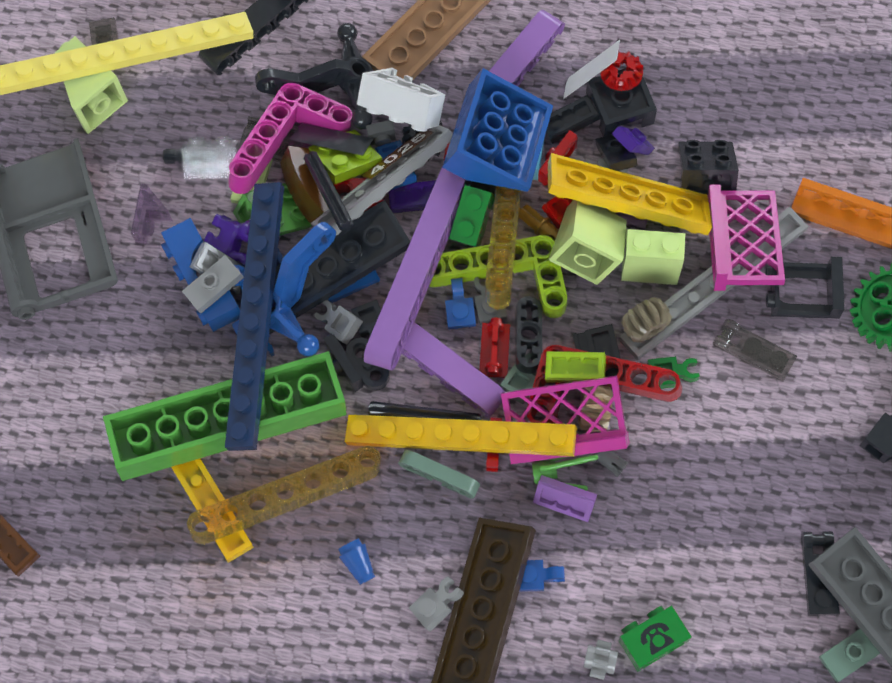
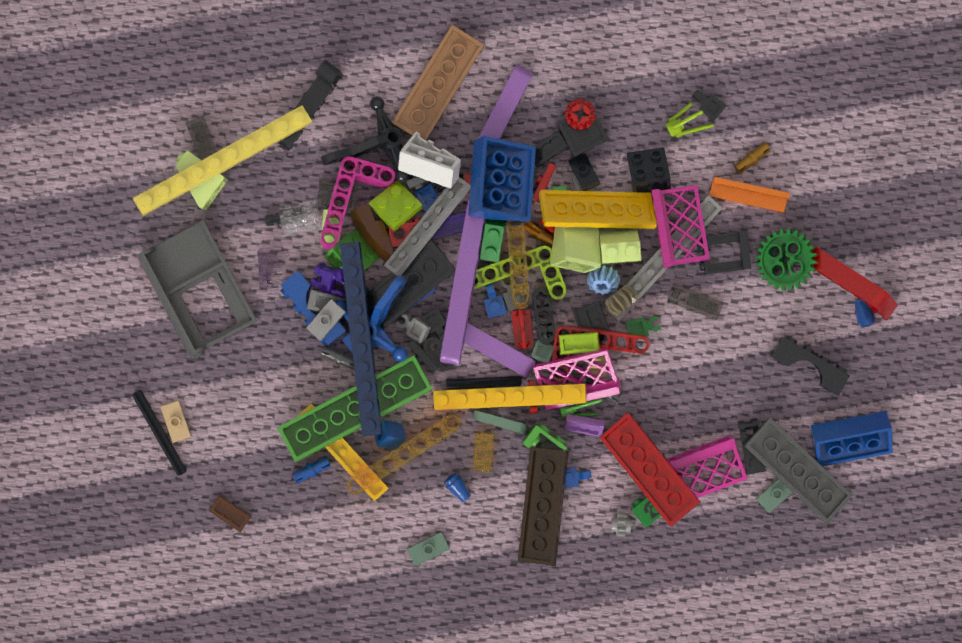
camera: 10 degrees left, 20 degrees up
(145, 500) = (311, 470): none -> blue pin
(221, 347) = (338, 357): none -> dark grey pin
(269, 464) = (392, 435): none -> blue panel
(294, 649) = (428, 548): none -> sand green plate
(328, 191) = (392, 242): black axle -> none
(332, 139) = (384, 195): black sticker -> none
(395, 155) = (432, 205): reddish brown sticker -> none
(406, 515) = (483, 452): none -> clear yellow plate
(432, 605) = (510, 508): light grey plate -> none
(493, 489) = (533, 437): none -> bright green bracket
(591, 69) = (559, 115): white sticker -> none
(618, 284) = (603, 280): none -> light blue gear
(633, 140) = (595, 163): dark purple plate -> none
(659, 577) = (650, 469): none -> red plate
(736, 571) = (702, 453): none -> dark pink fence
(753, 114) = (676, 126): none -> lime plant
(802, 97) = (710, 106): none -> black plate
(857, 170) = (752, 158): none -> pearl gold pin

